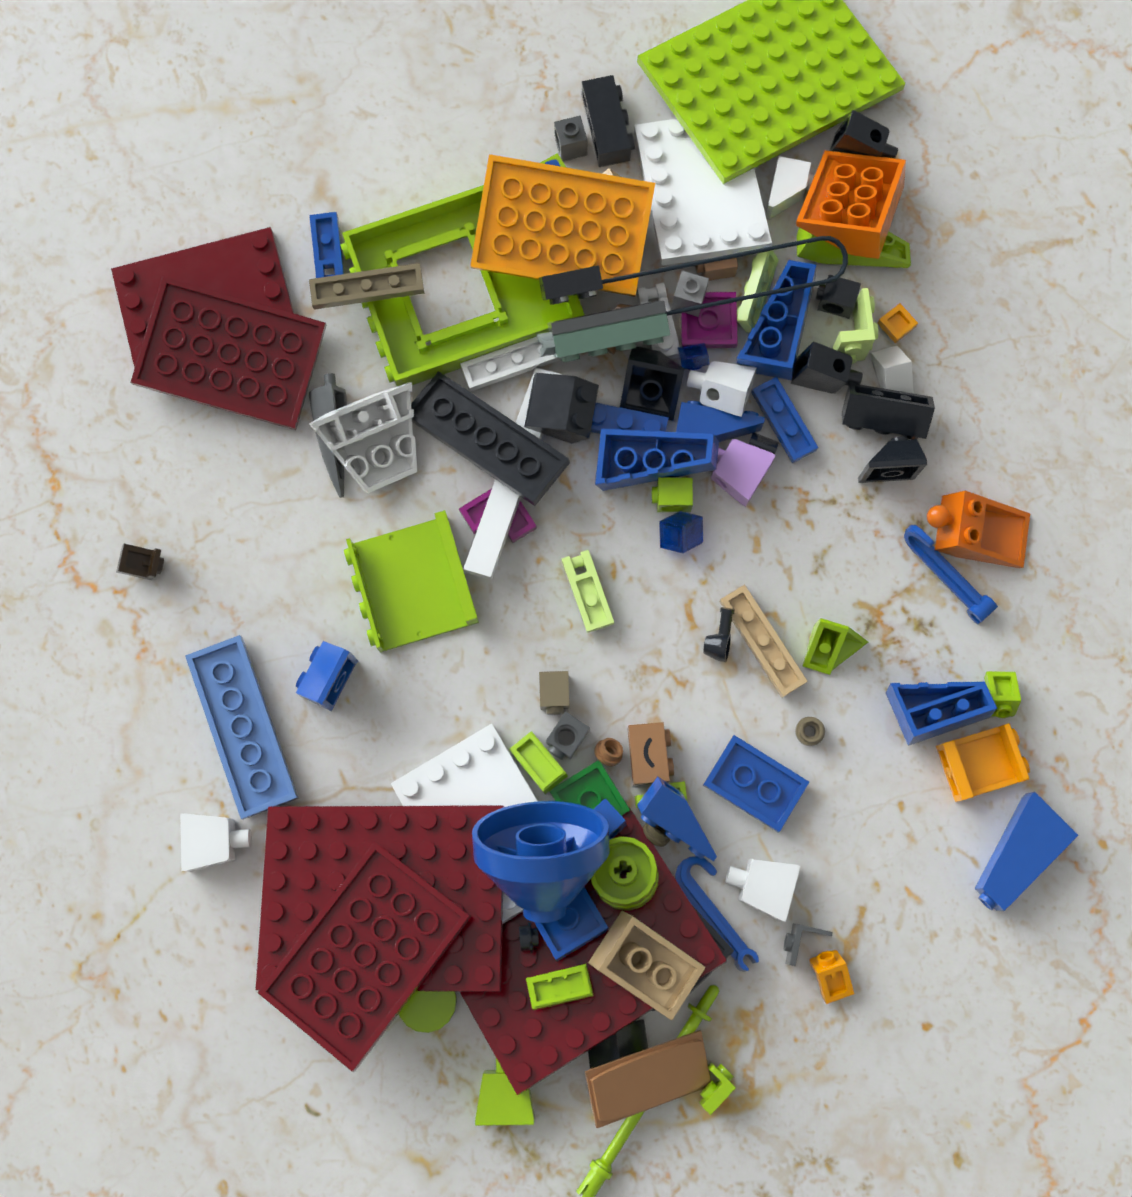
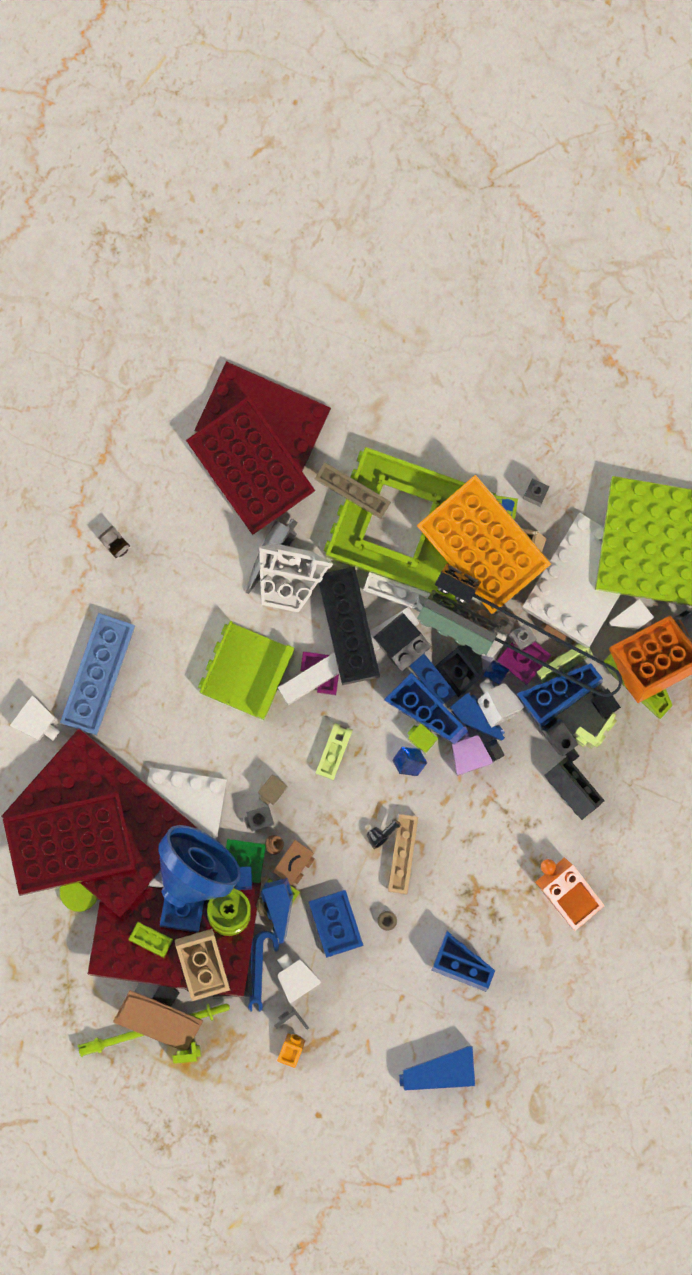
camera: 35 degrees right, 5 degrees up
(326, 243) = (351, 446): blue plate -> none
(326, 675) = (161, 684): slope -> none
(499, 1102) = (76, 970): lime torso -> none
(528, 937) = (155, 903): black plate -> none
(538, 762) = (233, 819): lime tile -> none
(607, 120) = (565, 498): black brick -> none
(784, 419) = (517, 746): blue plate -> none
(831, 646) = (435, 887): lime slope -> none
(893, 369) = (599, 768): white slope -> none
(896, 461) = (554, 817): black slope -> none
(897, 323) = (624, 744): light orange plate -> none
(922, 545) = (532, 931): blue piece -> none
(983, 762) = (462, 1011): light orange panel -> none
(1004, 691) = (503, 985): lime bracket -> none

